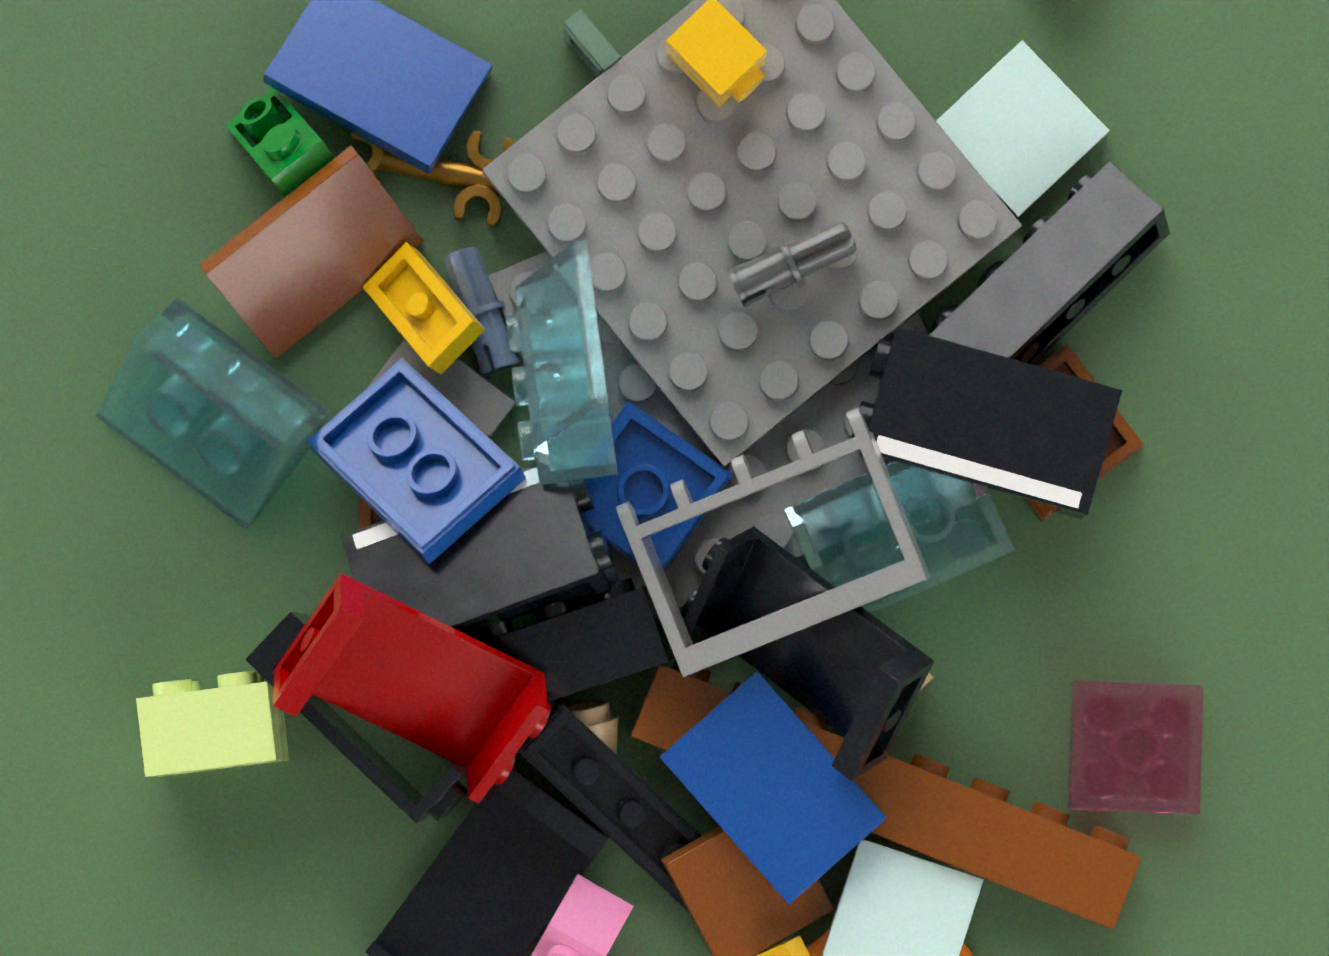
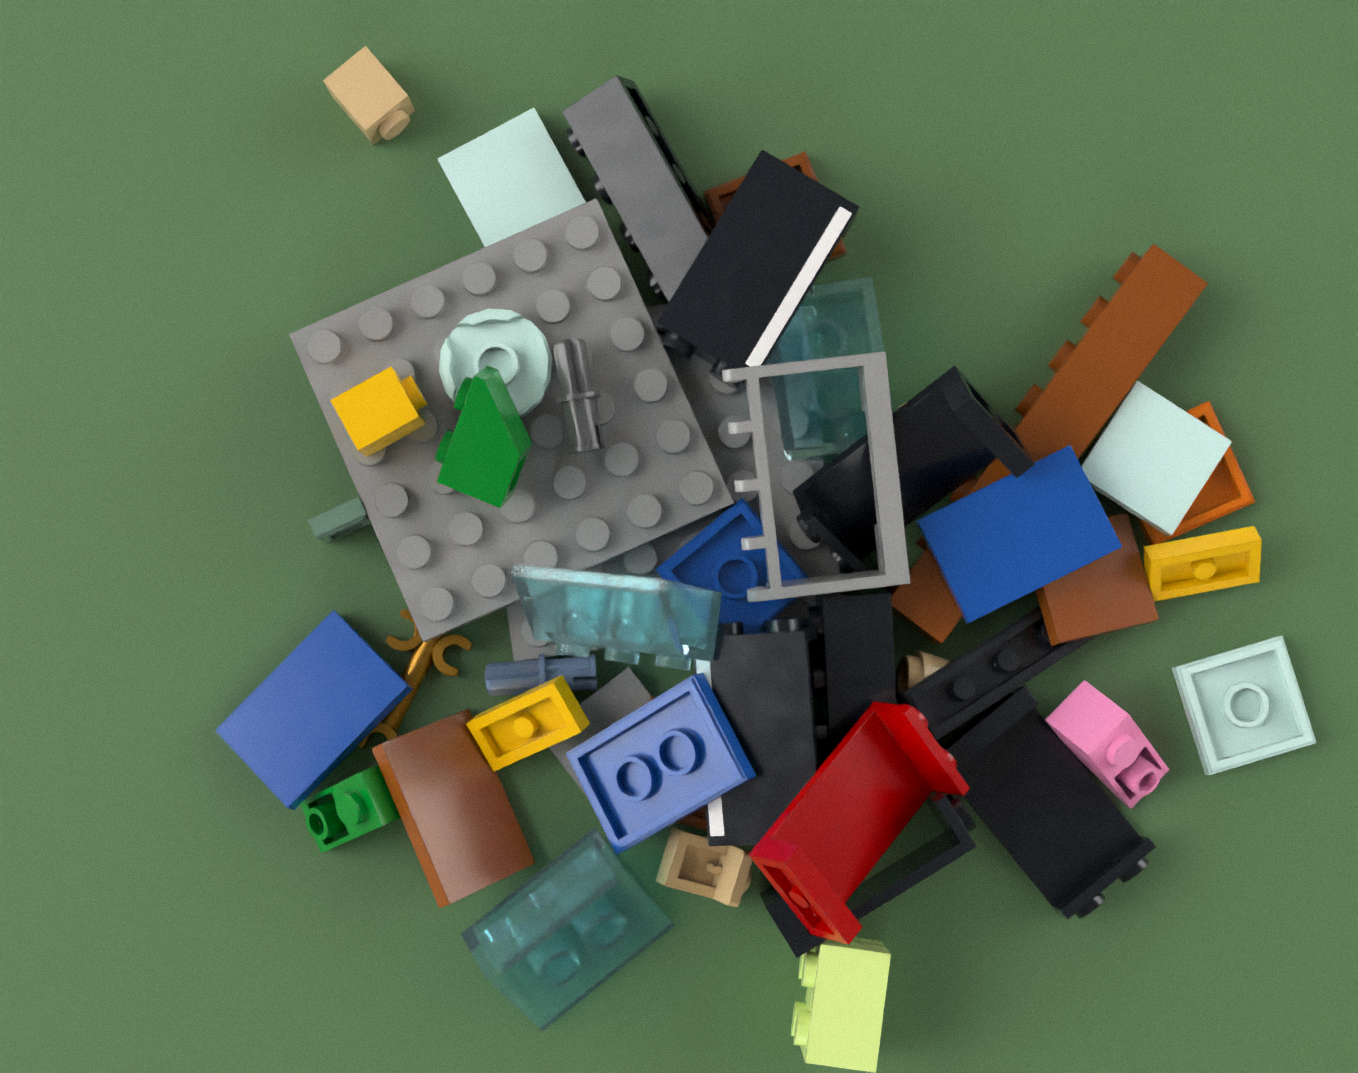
camera: 70 degrees left, 0 degrees up
(315, 541) = (705, 869): none -> tan bracket
(713, 178) = (488, 442): none -> green slope
(803, 165) = (505, 343): none -> light aqua tile
(1135, 747) = (1056, 226): clear pink plate -> none

